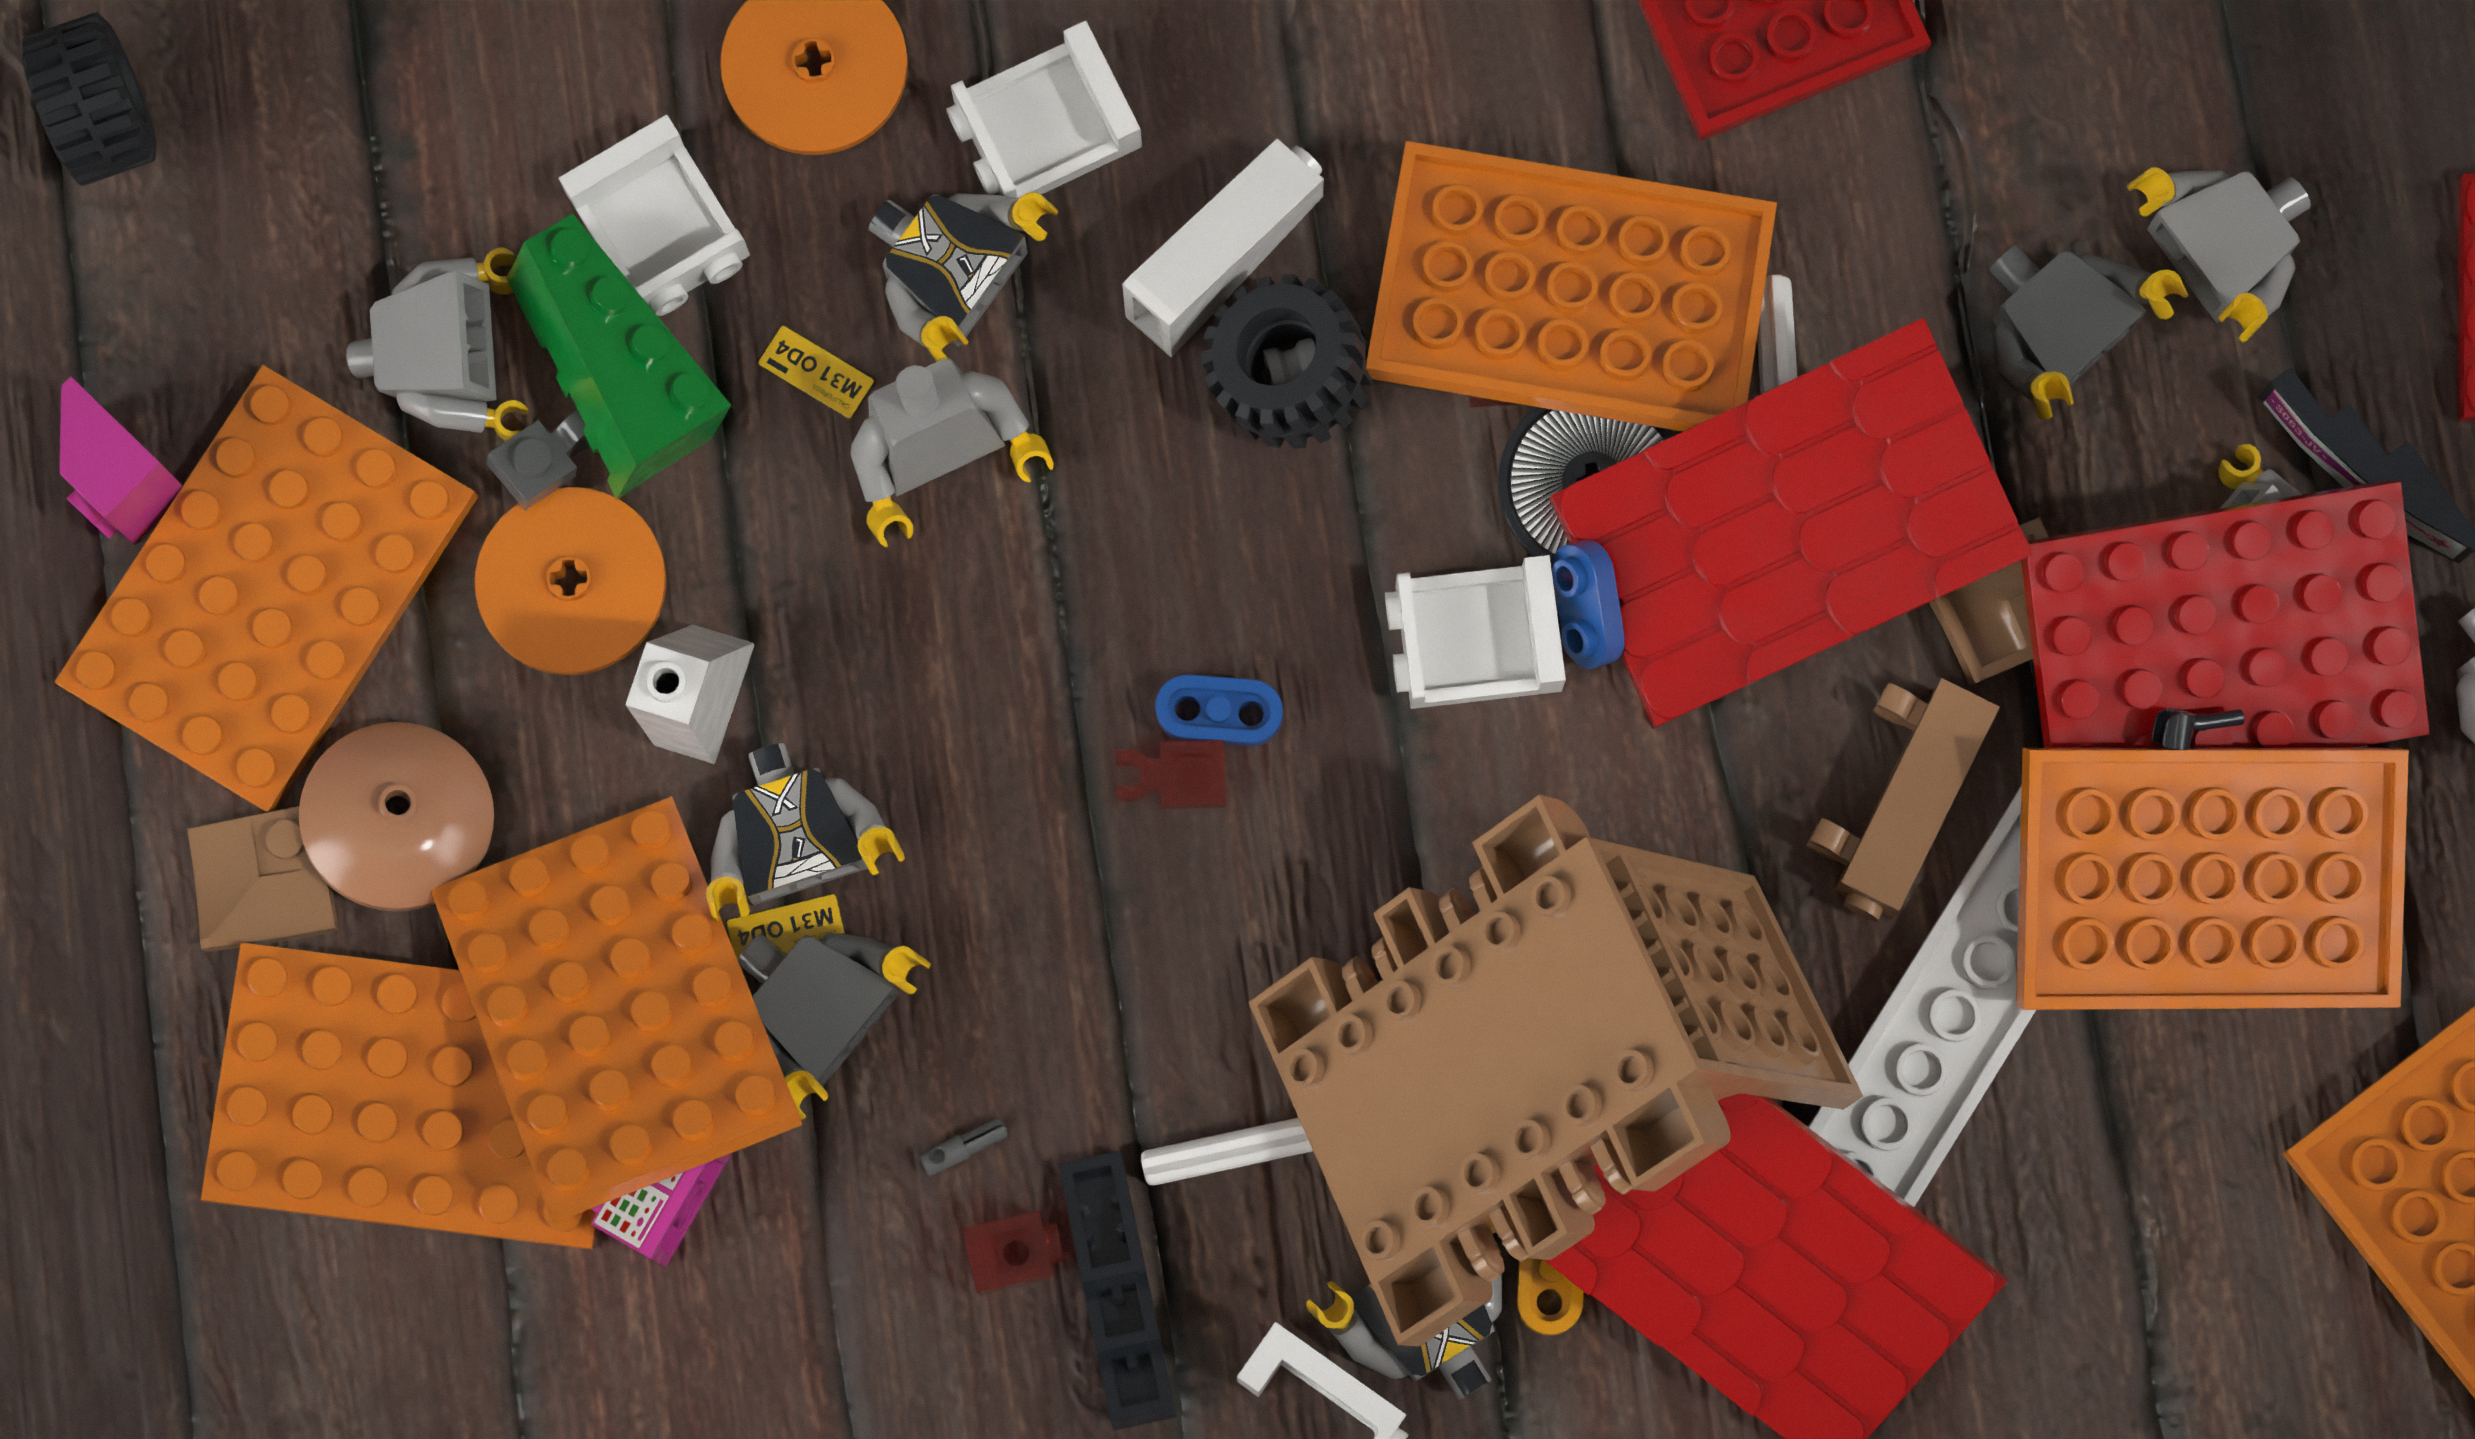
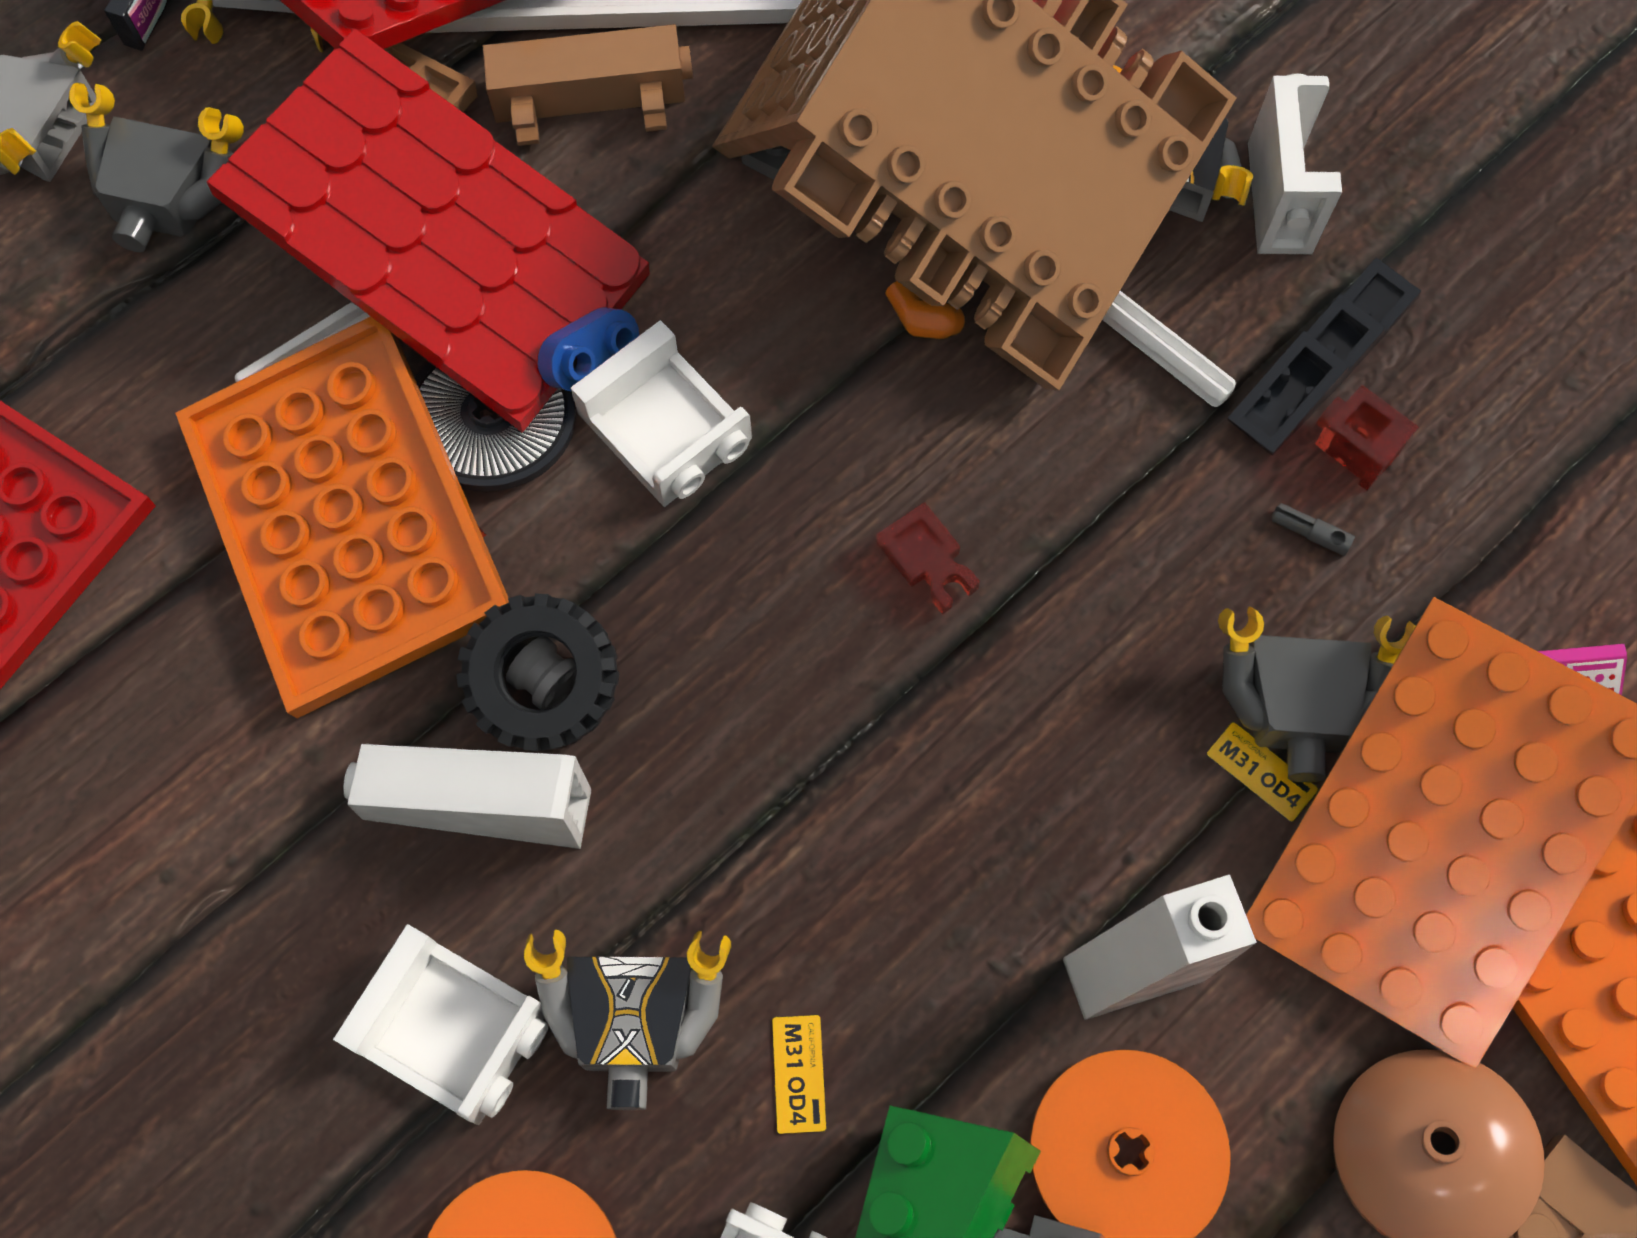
camera: 125 degrees left, 10 degrees down
(792, 834) = (1197, 804): torso -> none
(930, 426) = (790, 924): light grey torso -> none
(1219, 705) = (857, 560): blue plate -> none

